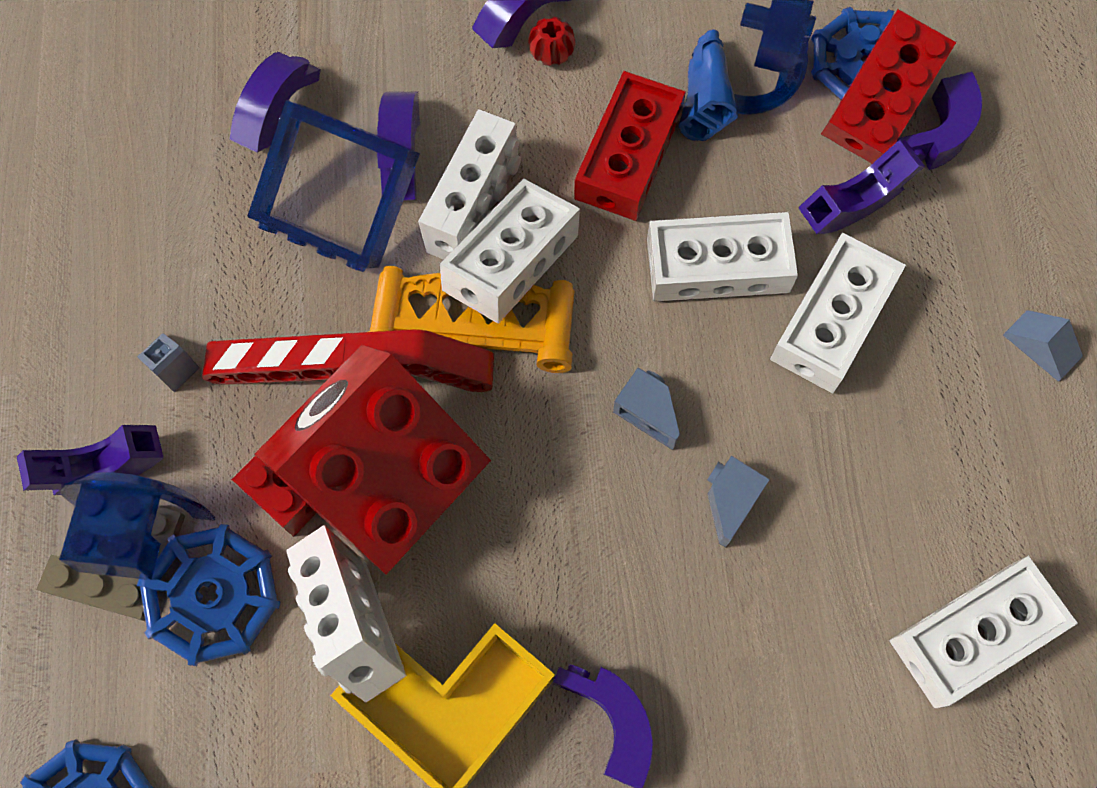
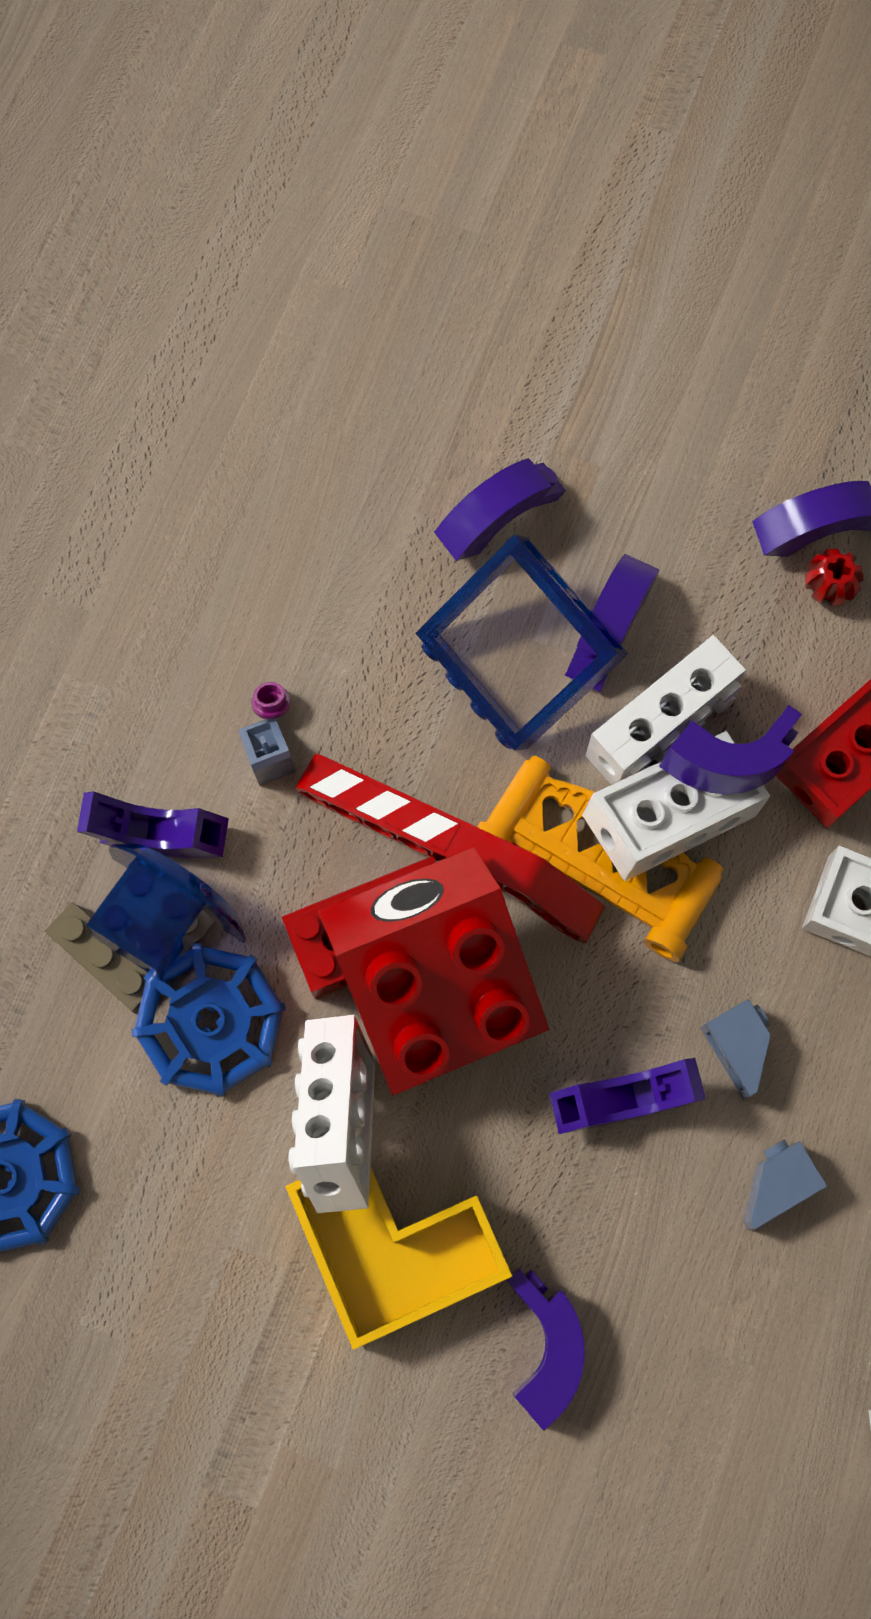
camera: 25 degrees right, 5 degrees up
(153, 321) = (268, 693): none -> magenta plate
(537, 197) = (728, 767): none -> dark purple arch
(582, 489) = (627, 1096): none -> dark purple arch

